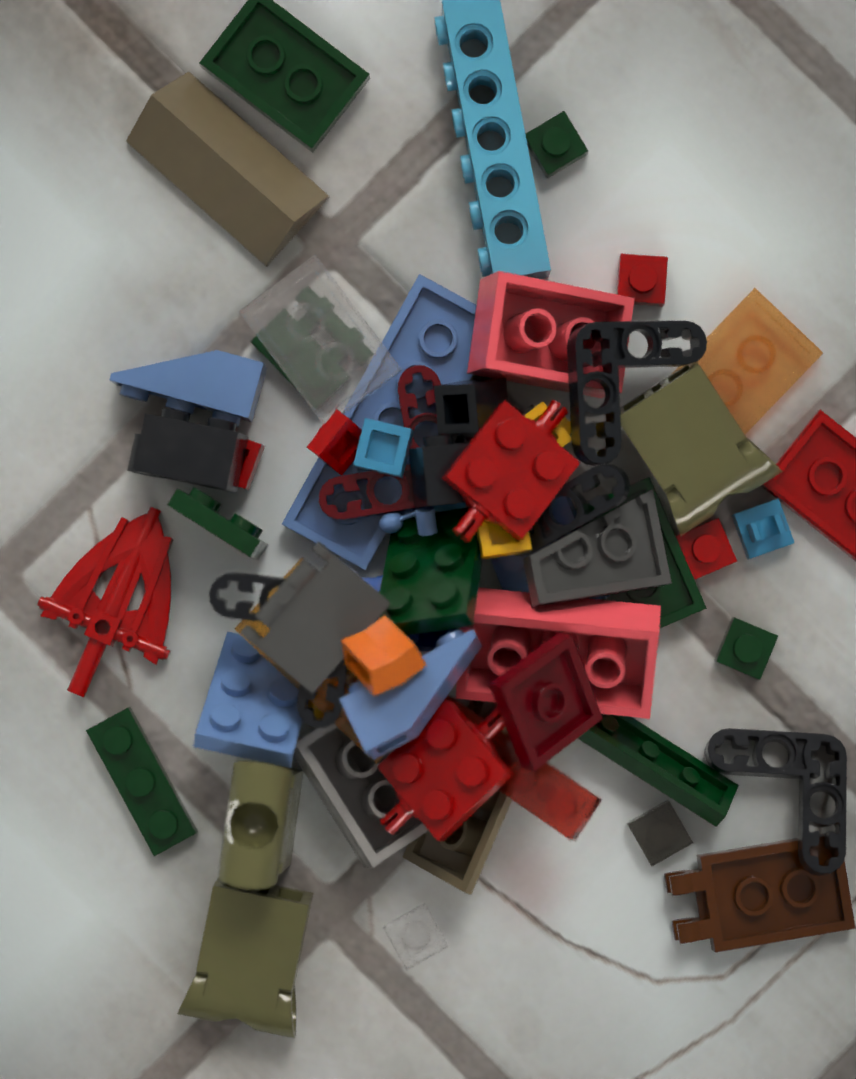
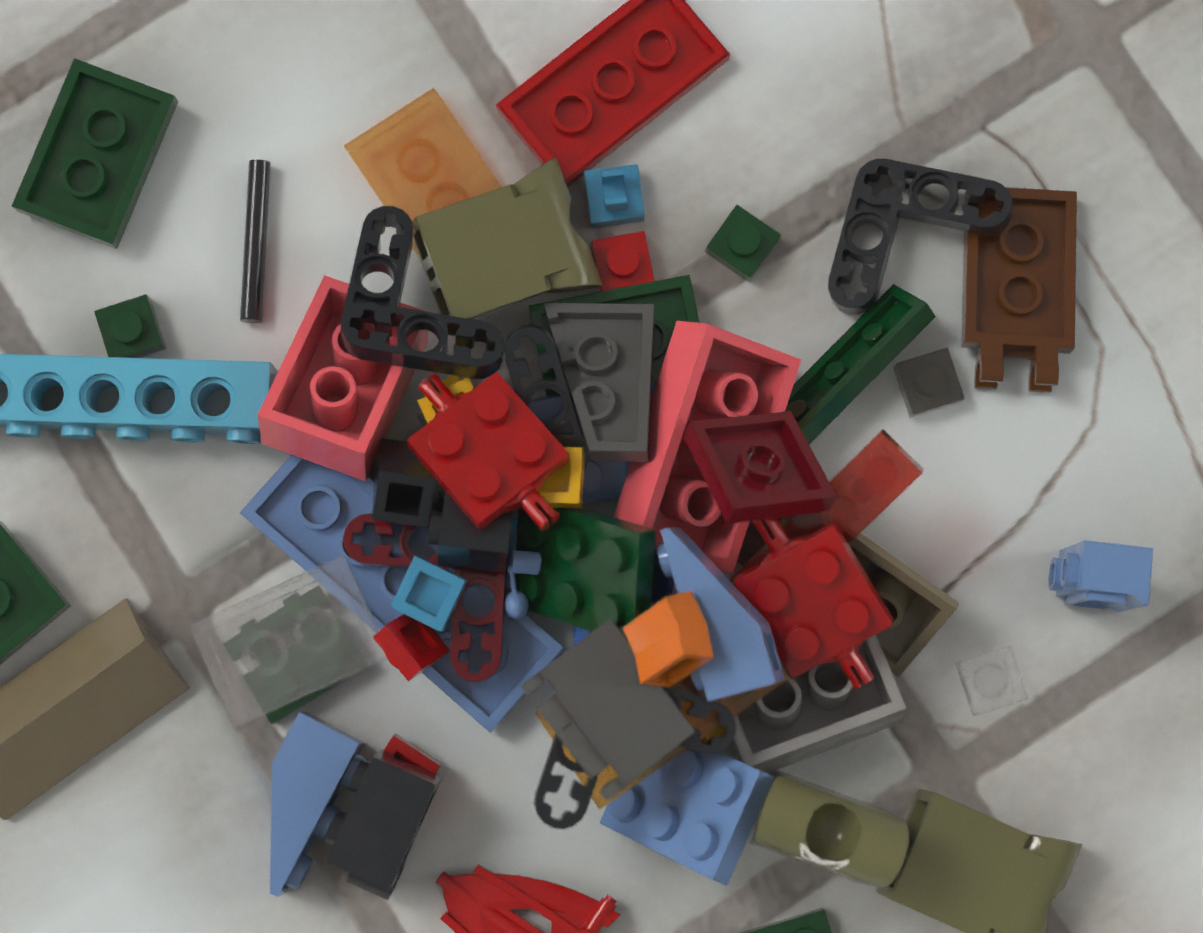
camera: 85 degrees left, 5 degrees down
(204, 512) = (456, 817): dark green plate -> none
(522, 1012) = (1102, 575): none -> medium blue window
(643, 278) = (303, 265): red plate -> none
(655, 231) = (255, 241): none -> black bar
(700, 78) = (95, 153): none -> dark green plate

